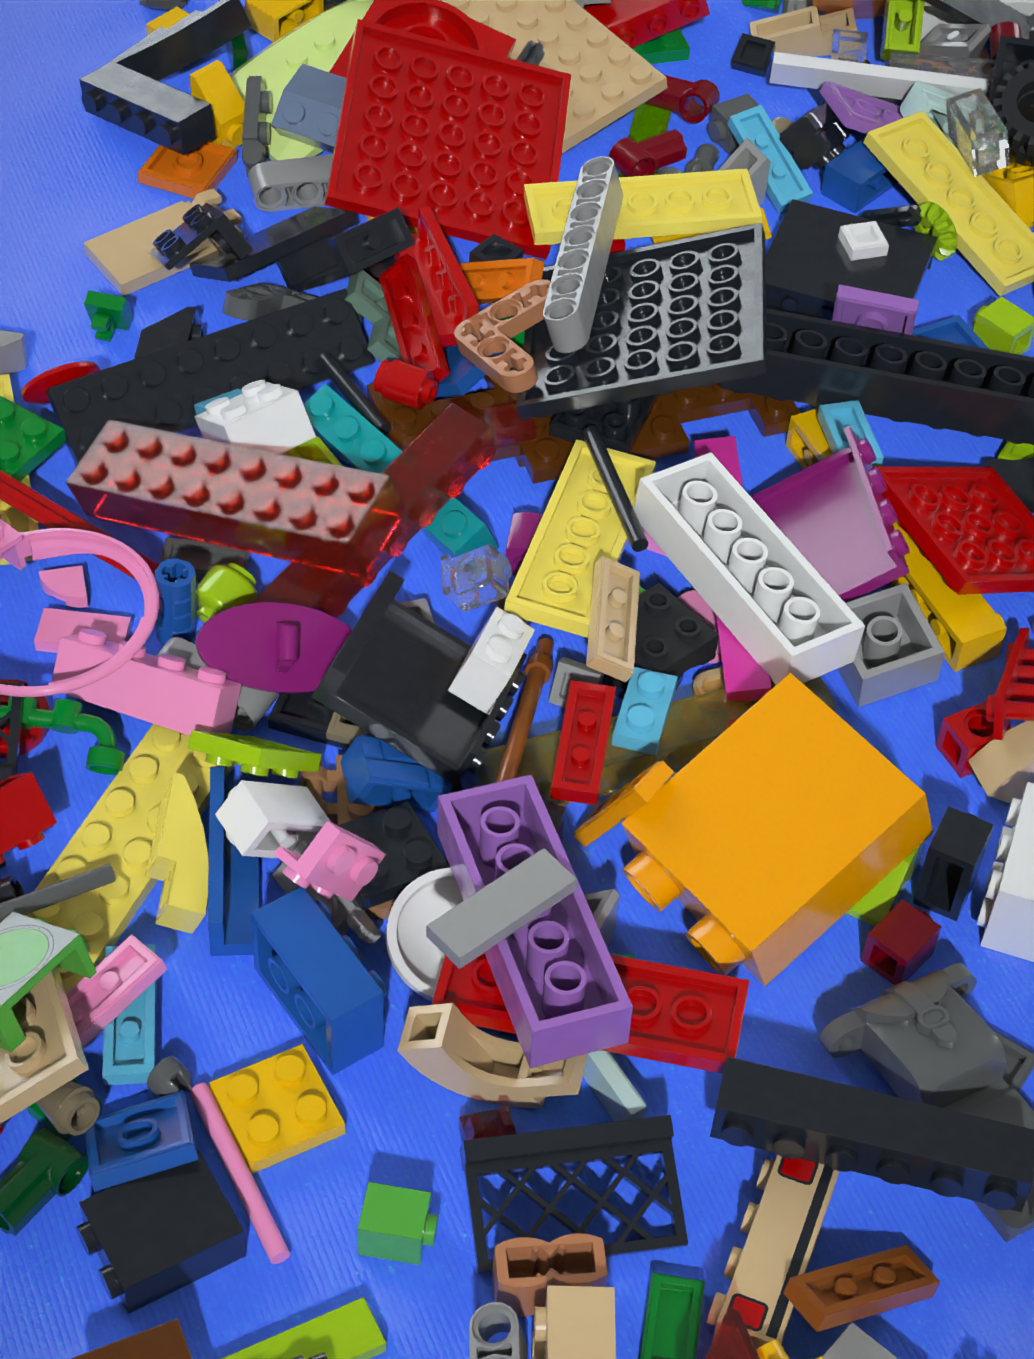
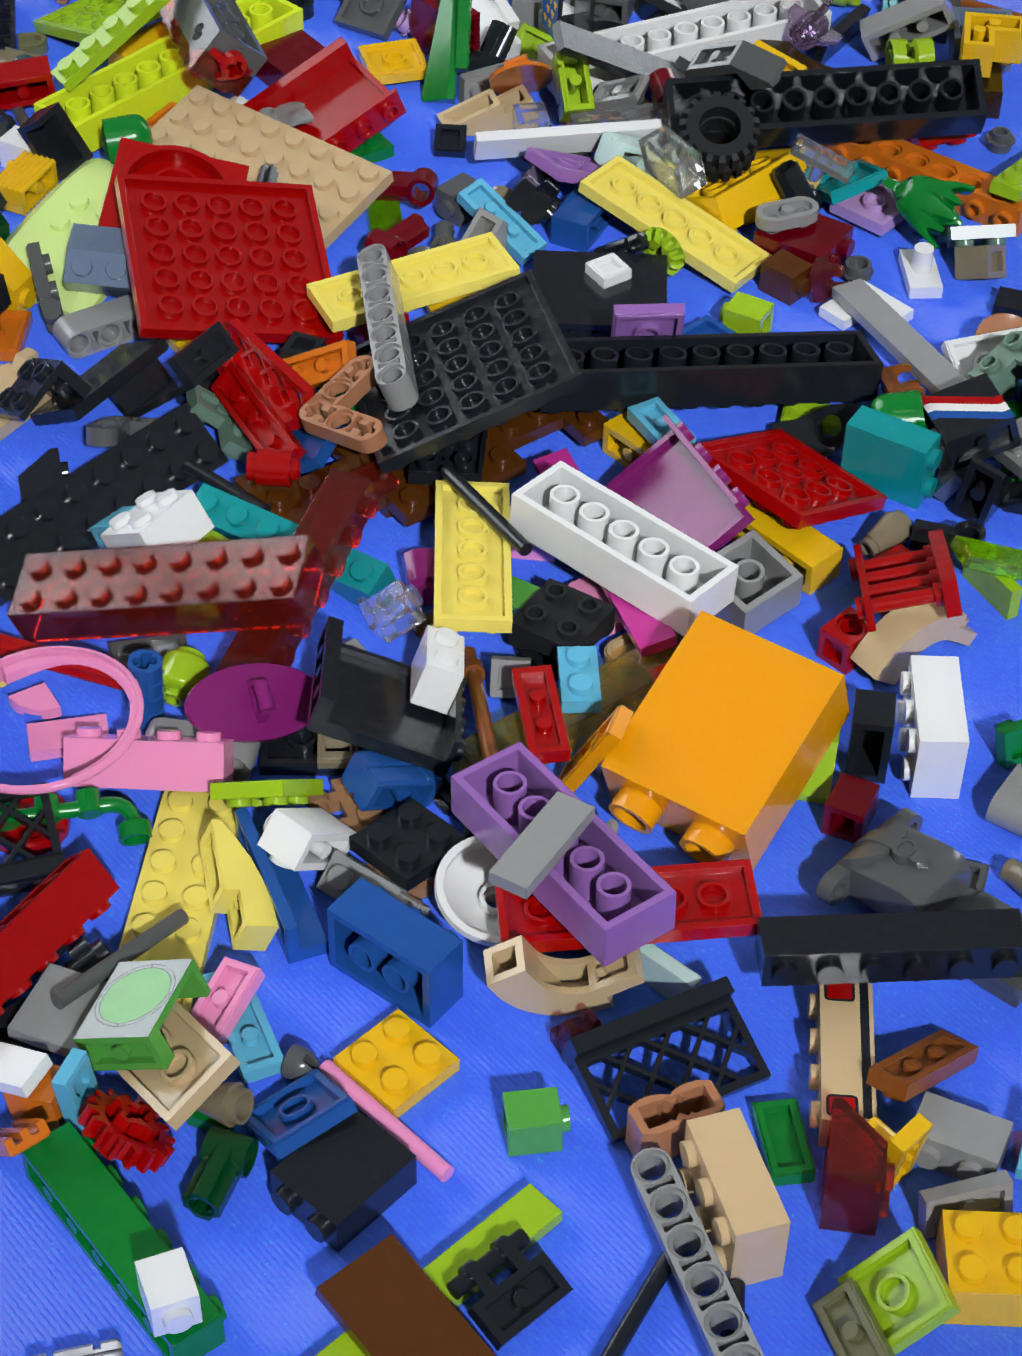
camera: 15 degrees left, 5 degrees down
(333, 863) = (381, 854): bright pink bracket -> none
(613, 619) = (528, 611): tan tile -> none

